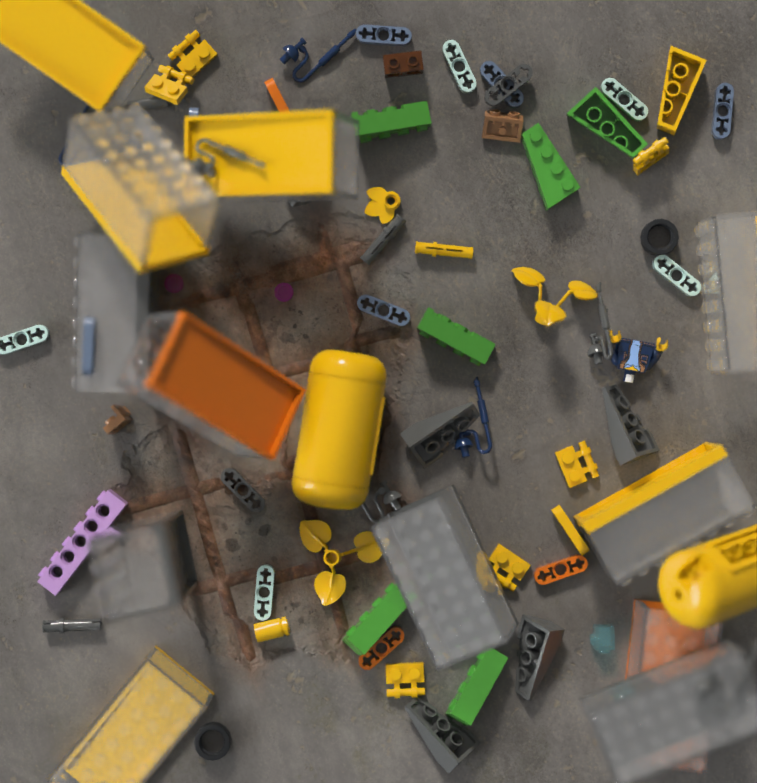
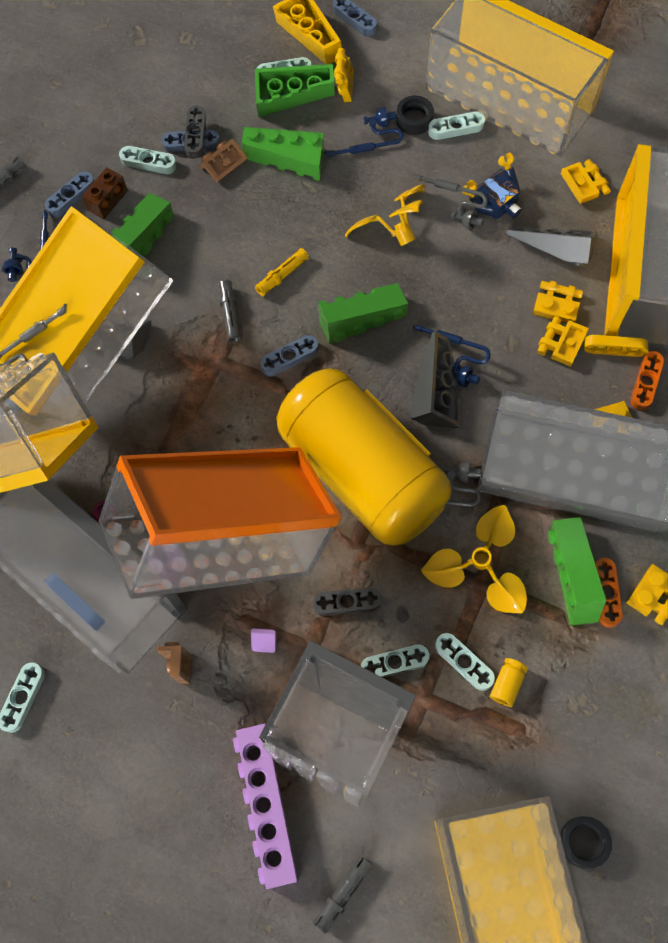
camera: 50 degrees left, 20 degrees down
(176, 458) = (263, 640): none -> lavender slope
(214, 545) = (399, 653): none -> light aqua beam
(284, 292) = (199, 425): magenta tile -> none
(379, 204) = (198, 293): yellow plate -> none
(547, 496) = (568, 344): none -> yellow plate
(635, 215) = (381, 118): none -> dark blue piece
(694, 408) = (581, 184): none -> yellow plate

